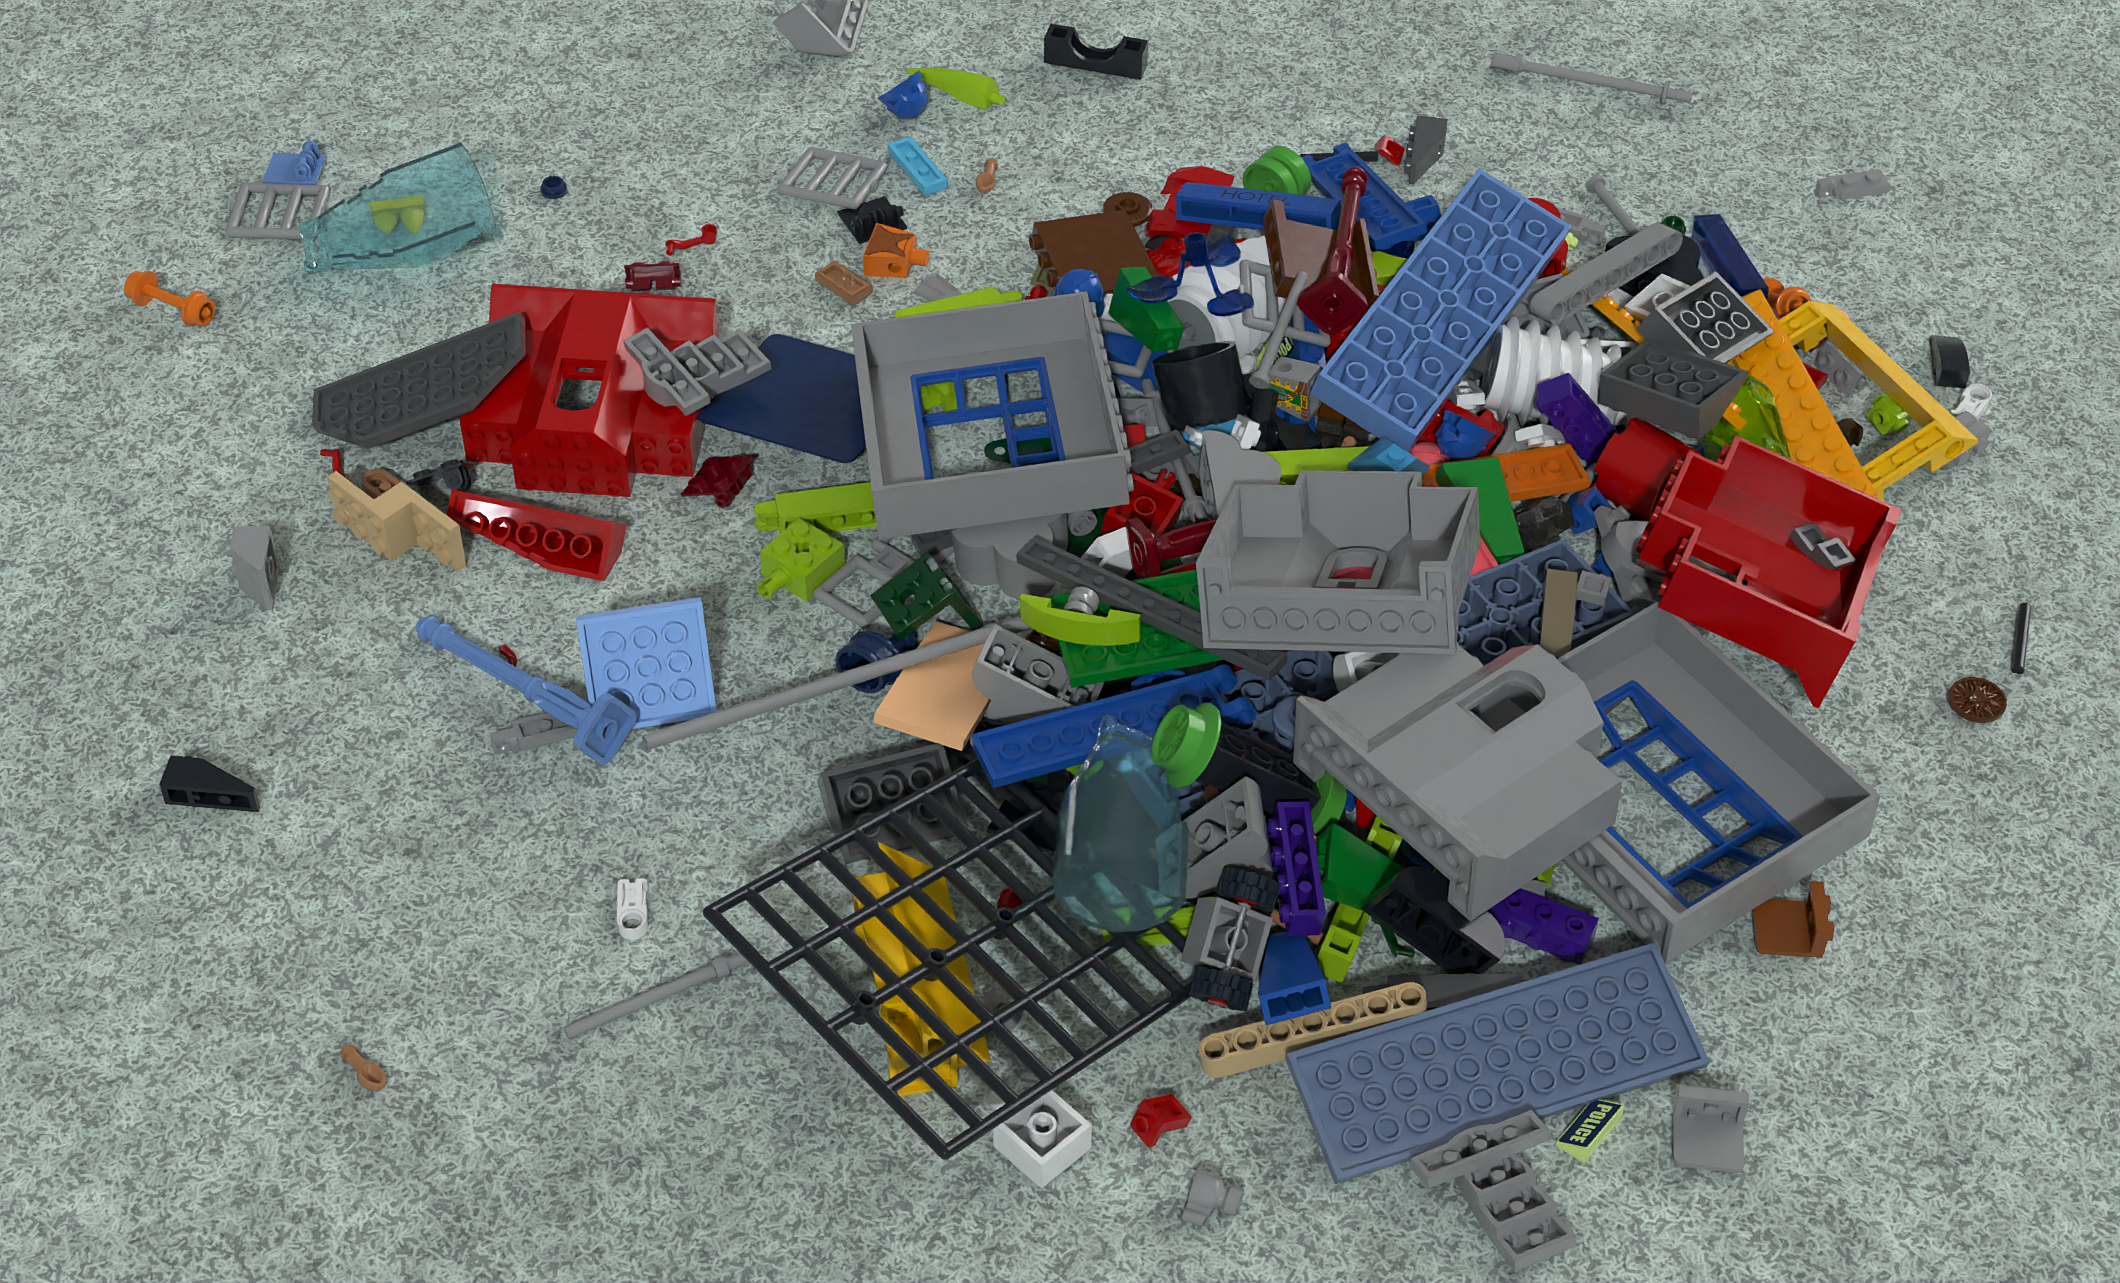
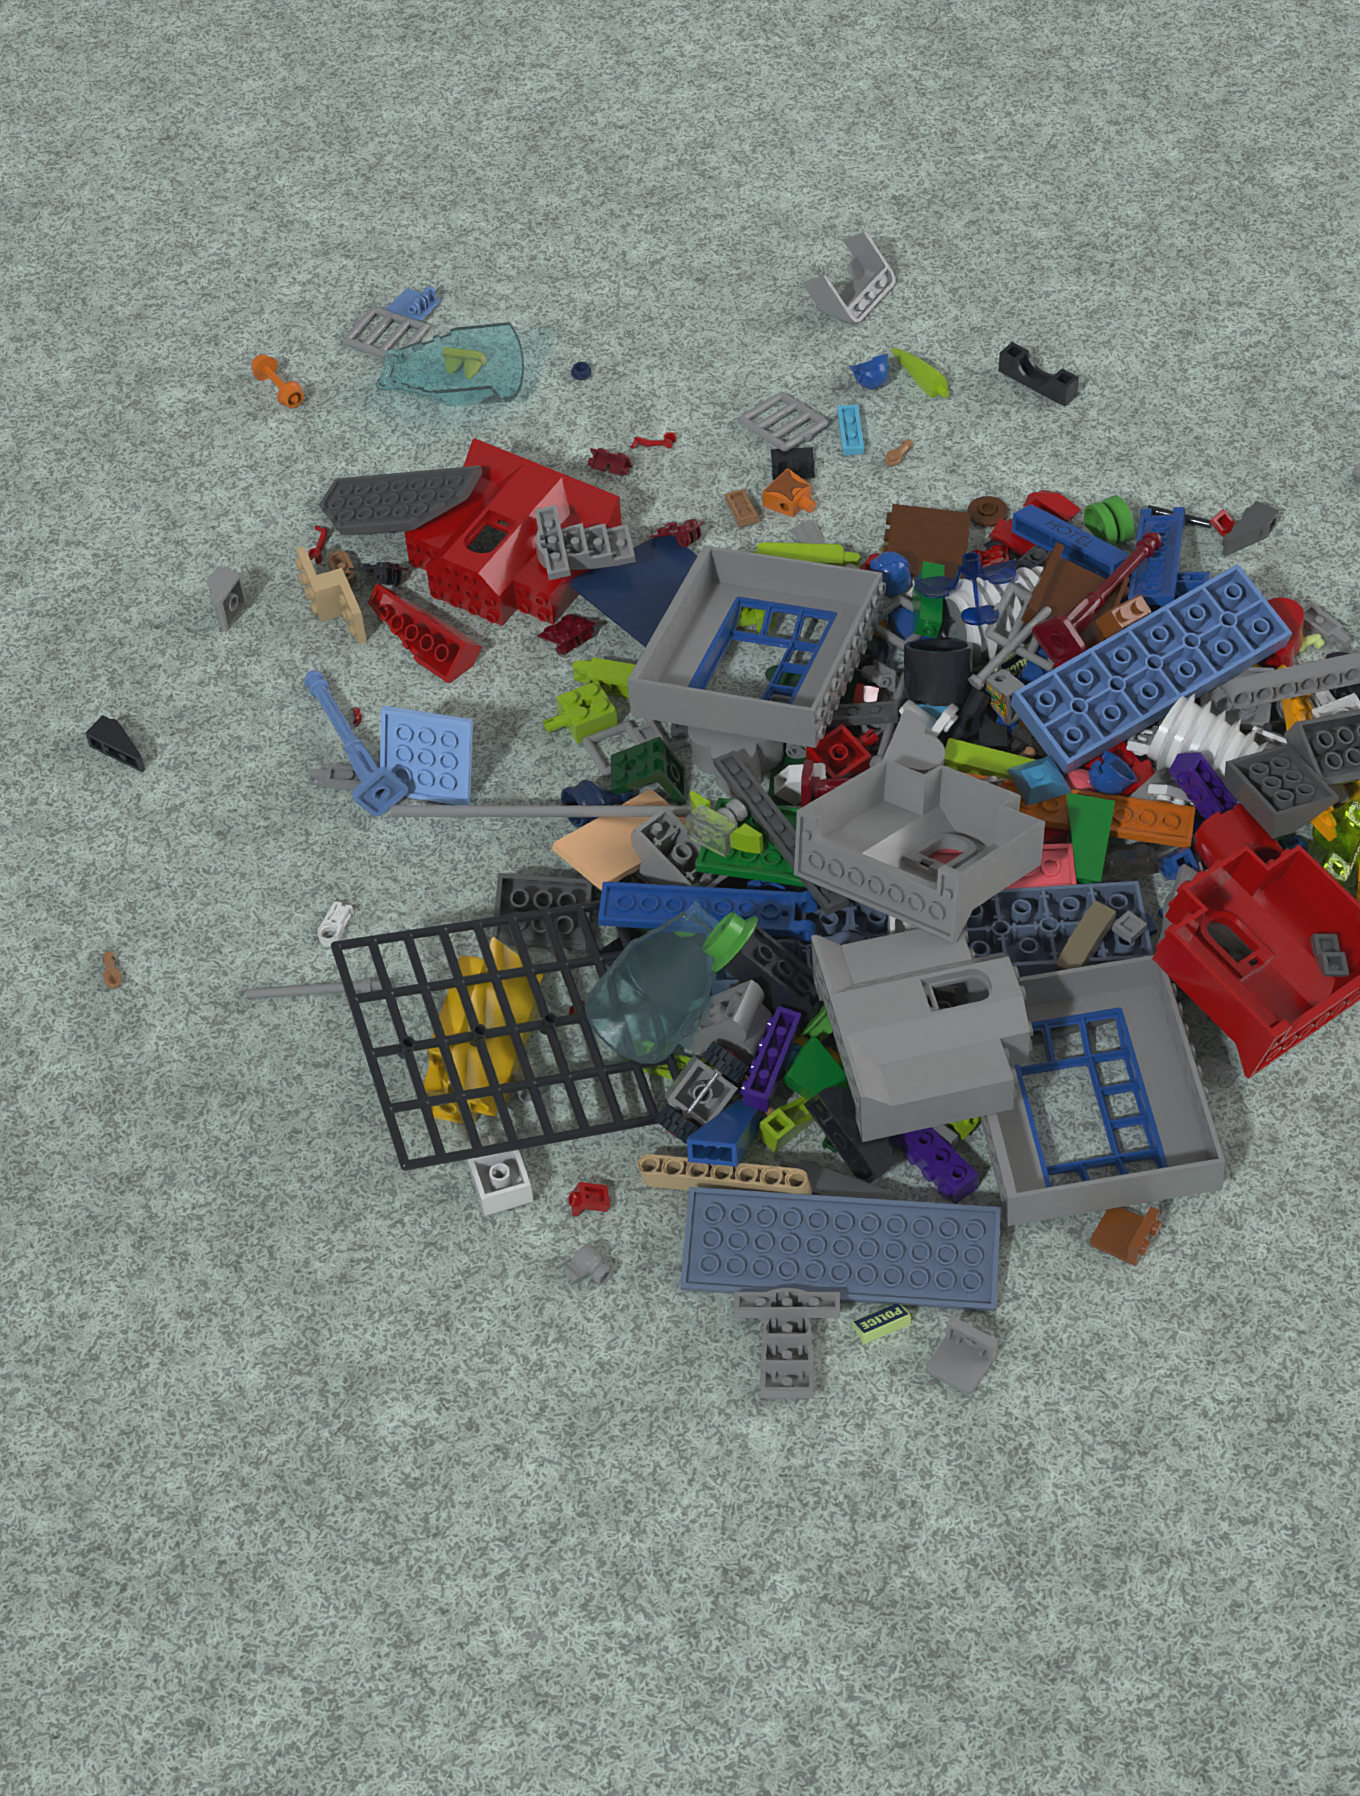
camera: 30 degrees right, 5 degrees up
(799, 321) = (686, 533): none -> dark red hinge
(1071, 631) = (710, 829): none -> clear bracket
(1388, 259) = (1123, 616): none -> dark orange brick

